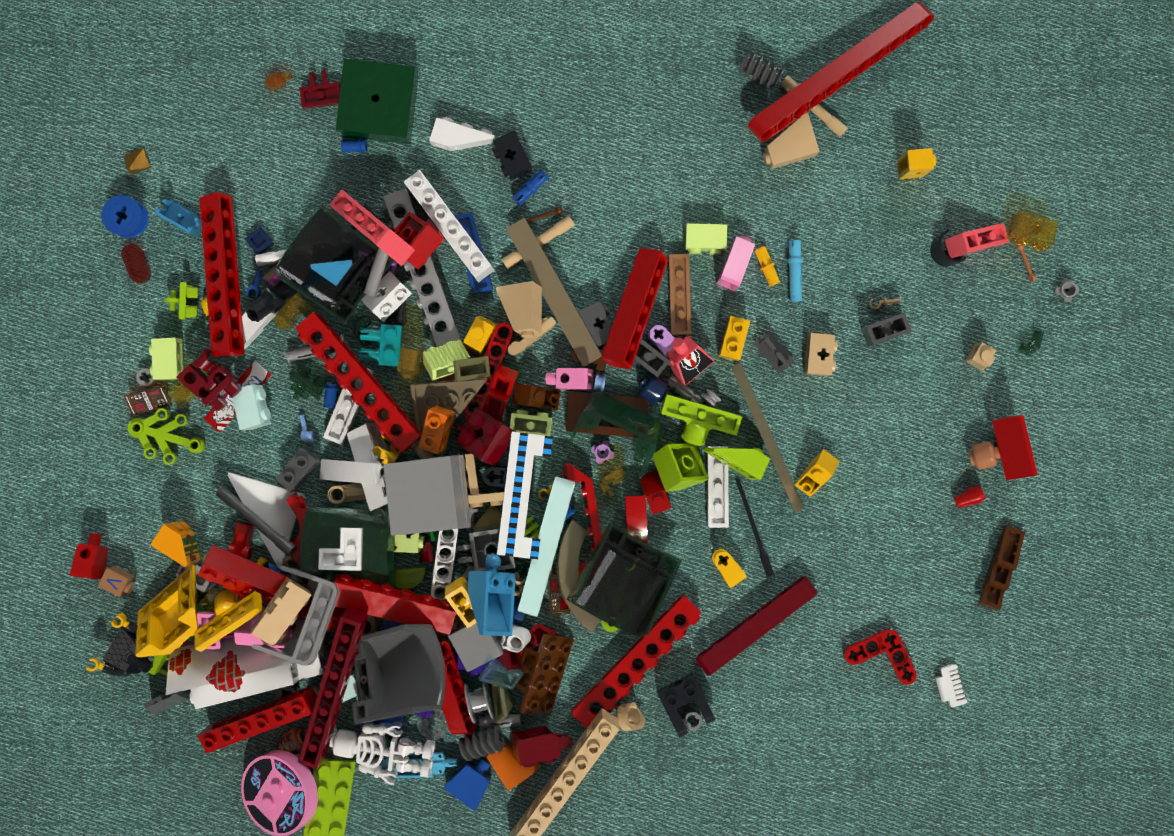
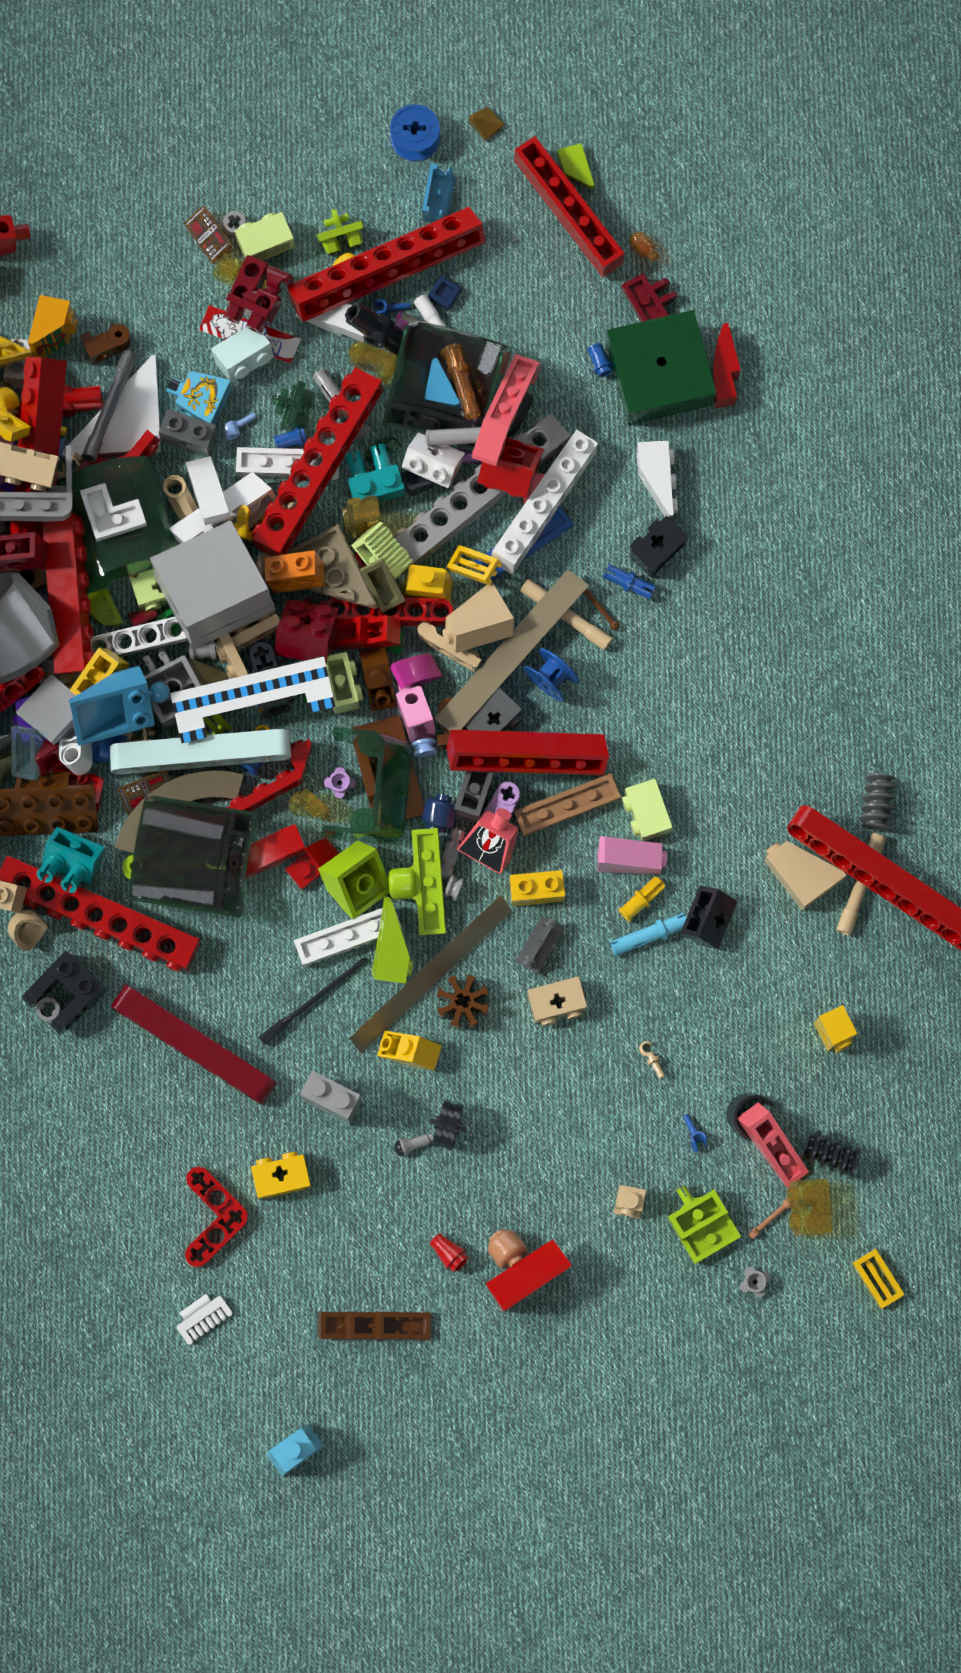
camera: 75 degrees right, 10 degrees down
(136, 263) = (364, 164): clear red tile -> none
(162, 435) = (172, 265): lime plant -> none
(195, 106) = (575, 165): none -> lime tile
(206, 505) = (107, 343): none -> reddish brown leg
(226, 123) = (568, 206): none -> red brick
(273, 450) = (200, 395): none -> medium azure torso
(329, 252) = (458, 371): none -> clear orange pin
(393, 54) = (725, 369): none -> red slope
(488, 285) = (489, 571): none -> yellow tile
(542, 367) = (415, 670): none -> dark pink slope
(582, 269) = (551, 674): none -> blue piece
(588, 666) = (71, 856): none -> teal brick
(729, 569) = (250, 989): yellow piece -> none
(791, 417) = (459, 1010): none -> reddish brown gear
(801, 223) = (709, 917): none -> black brick
(836, 542) = (331, 1098): none -> light grey brick
(877, 606) = (295, 1181): none -> yellow brick
(883, 465) = (448, 1125): none -> black wheel
(883, 501) = (404, 1146): none -> light grey piece
(886, 329) = (617, 1068): dark grey brick -> none
(948, 292) = (696, 1136): none -> blue hand
(999, 200) = (831, 1153): none -> black piece
(1015, 311) = (702, 1224): none -> lime plate
(1034, 345) = (668, 1264): clear green arm -> none
(1070, 657) = (295, 1449): none -> medium azure torso
(1078, 206) = (857, 1264): none -> yellow tile

